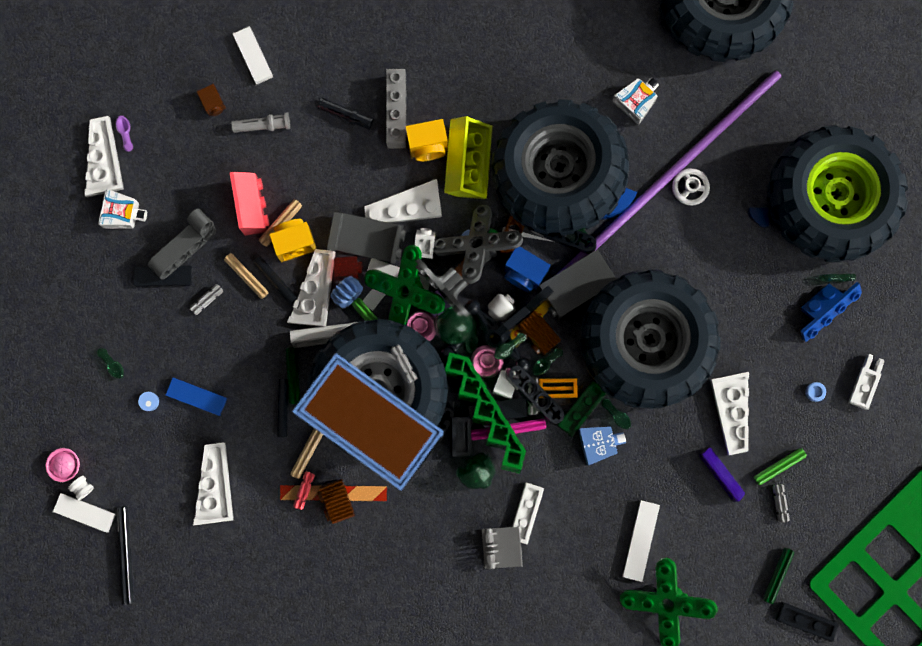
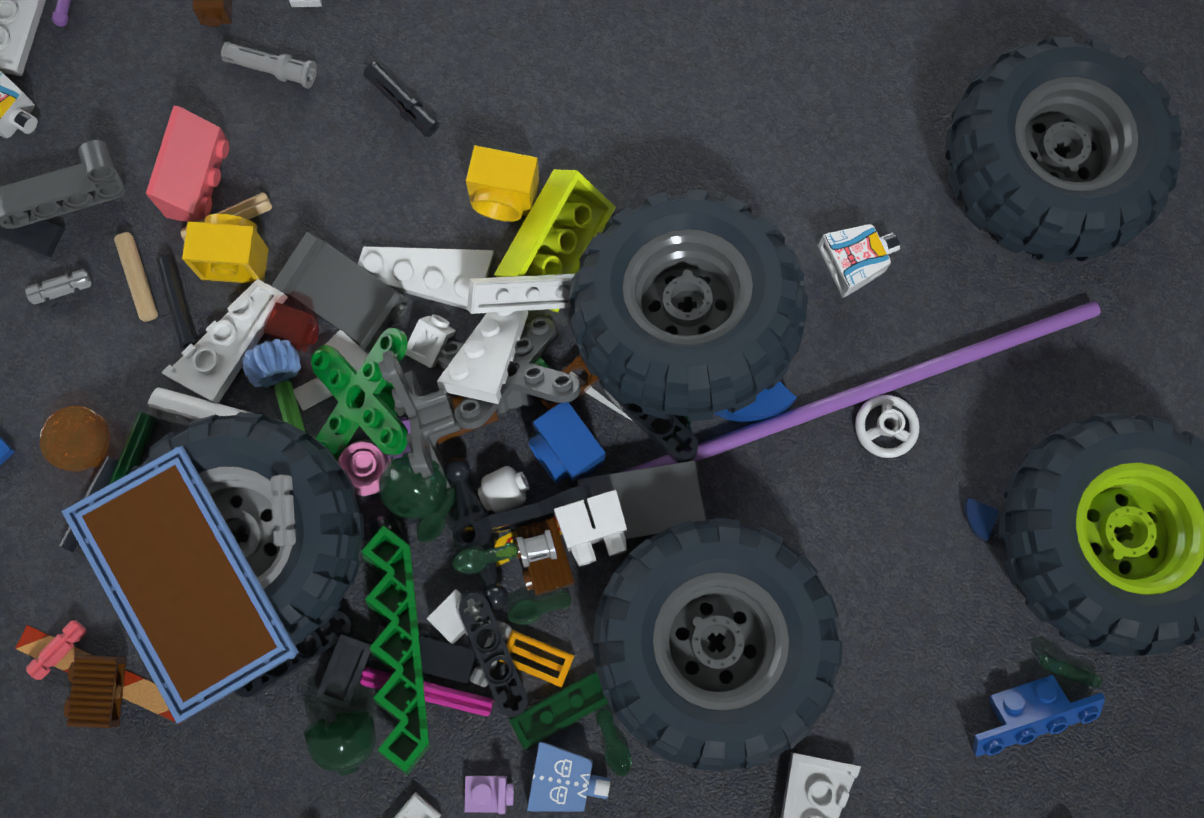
camera: 20 degrees right, 5 degrees down
(258, 377) = (75, 439): none -> clear orange tile
(306, 454) = (76, 603): tan axle -> none
(396, 108) = (479, 117): light grey brick -> none
(462, 241) = (484, 358): none -> white wing
(466, 196) = (519, 293): none -> white tile
(485, 362) = (439, 556): bright pink hat -> none
(535, 330) = (536, 548): none -> light grey bush
(558, 304) = (580, 535): none -> white hips
(563, 467) = (488, 794): none -> lavender bracket

